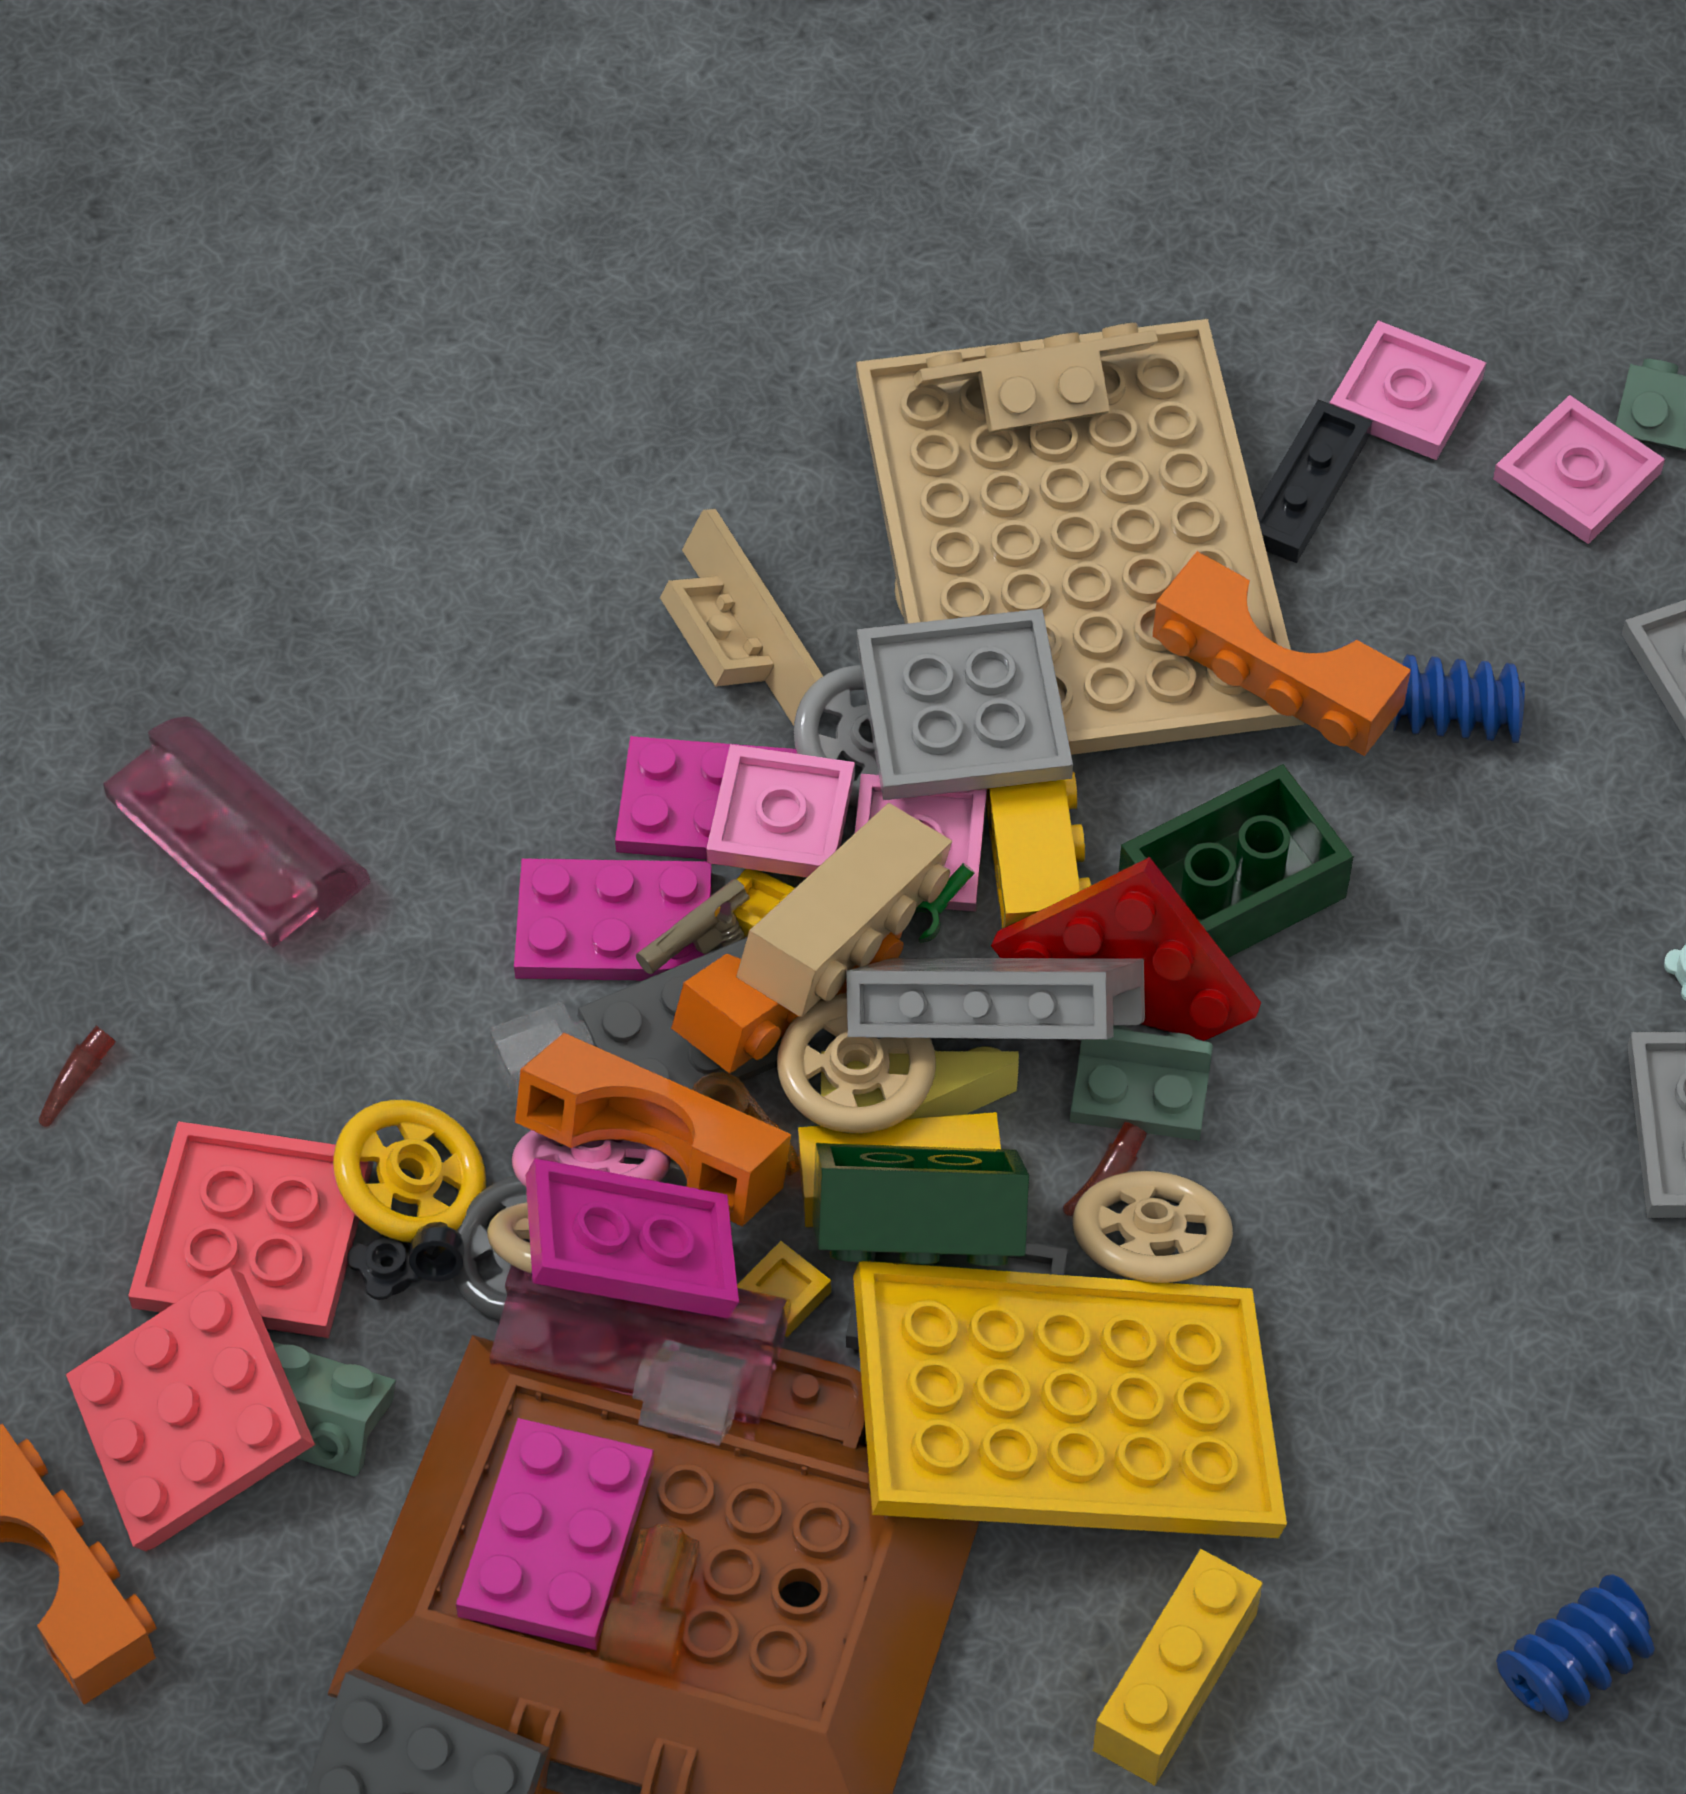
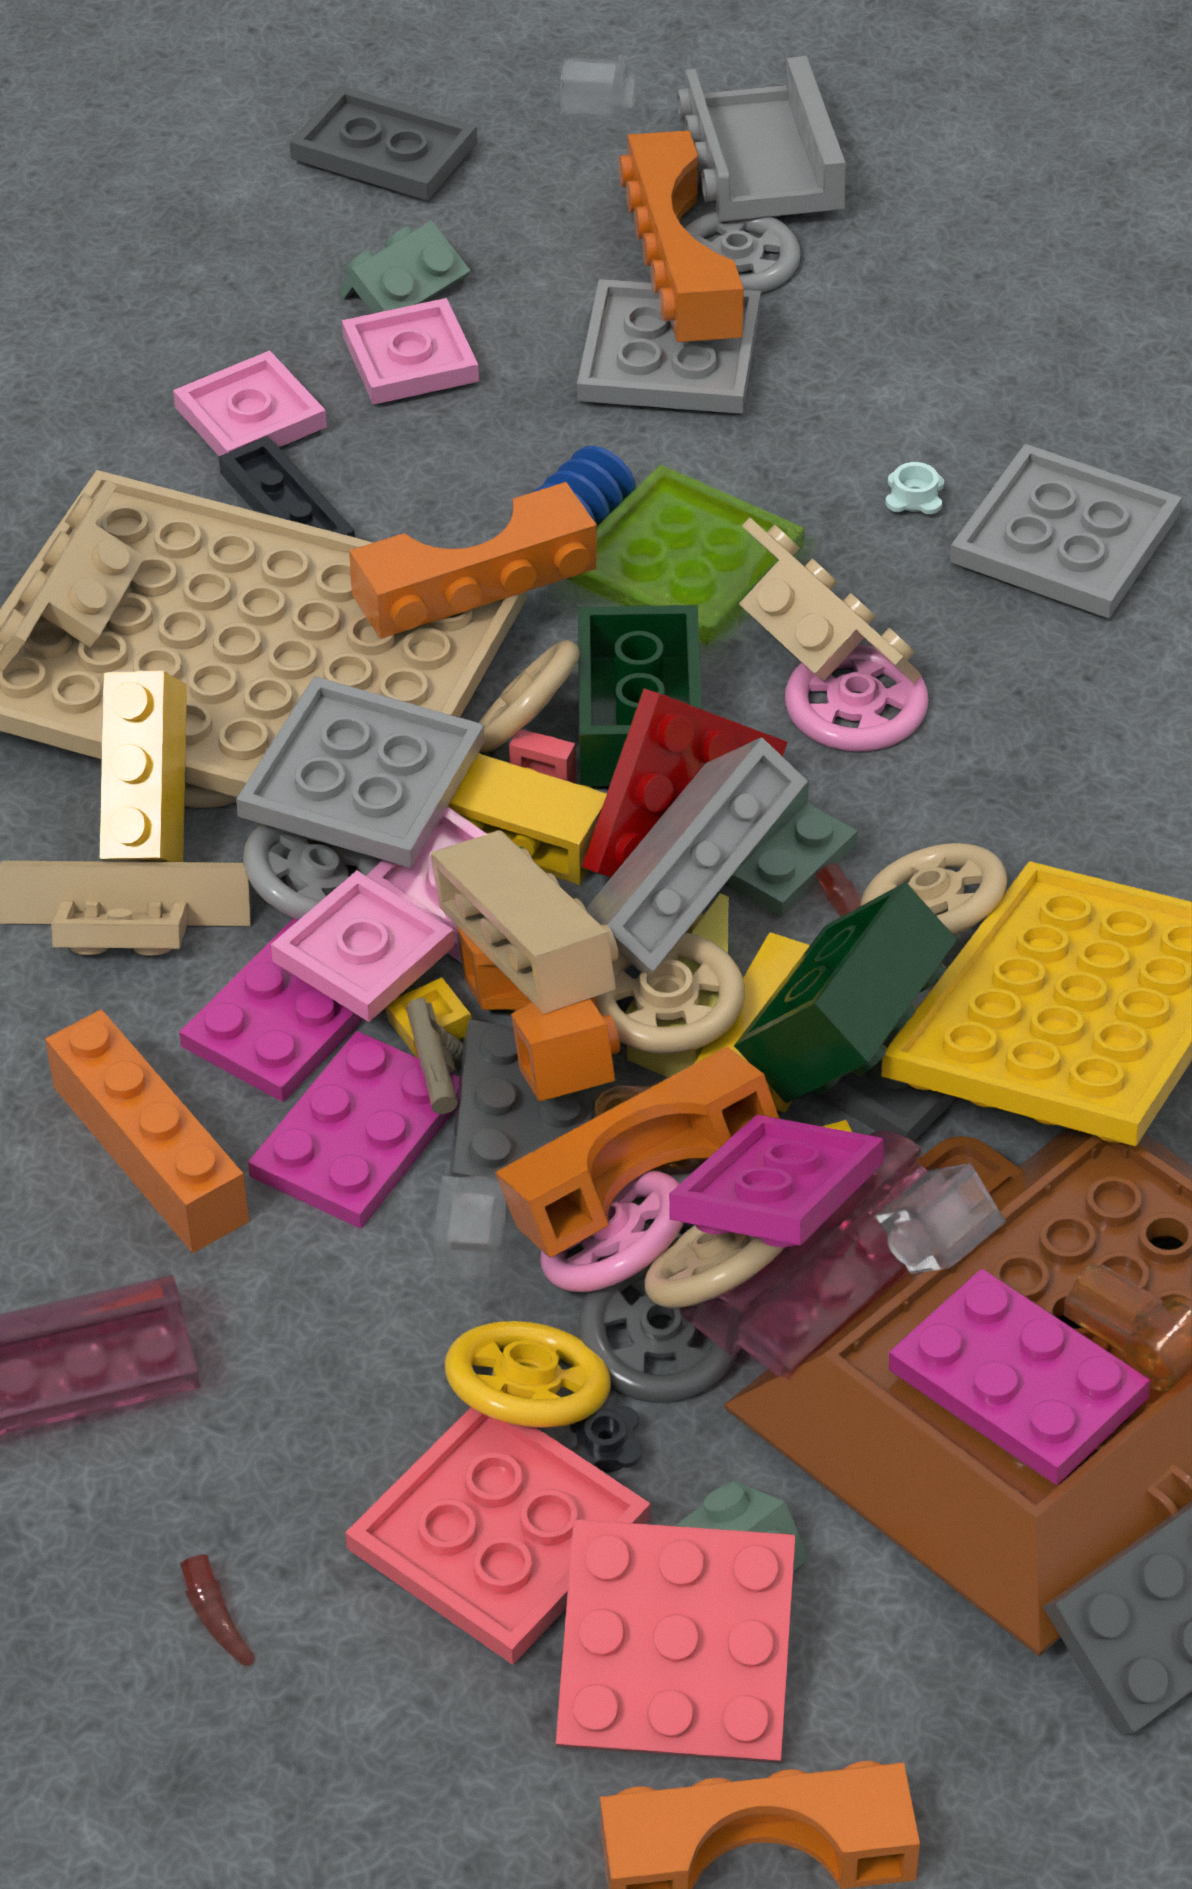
camera: 60 degrees left, 10 degrees down
(446, 1258) = (631, 1383): black hinge -> none
(501, 769) = (147, 1130): none -> orange brick
(858, 547) = (143, 767): none -> brick
(1107, 834) = (544, 754): none -> coral plate
(1162, 783) = (528, 694): none -> tan plate
(1351, 1086) = (874, 730): none -> bright pink plate
(1439, 961) = (809, 618): none -> tan bracket
(1467, 820) = (683, 547): none -> clear neon green plate

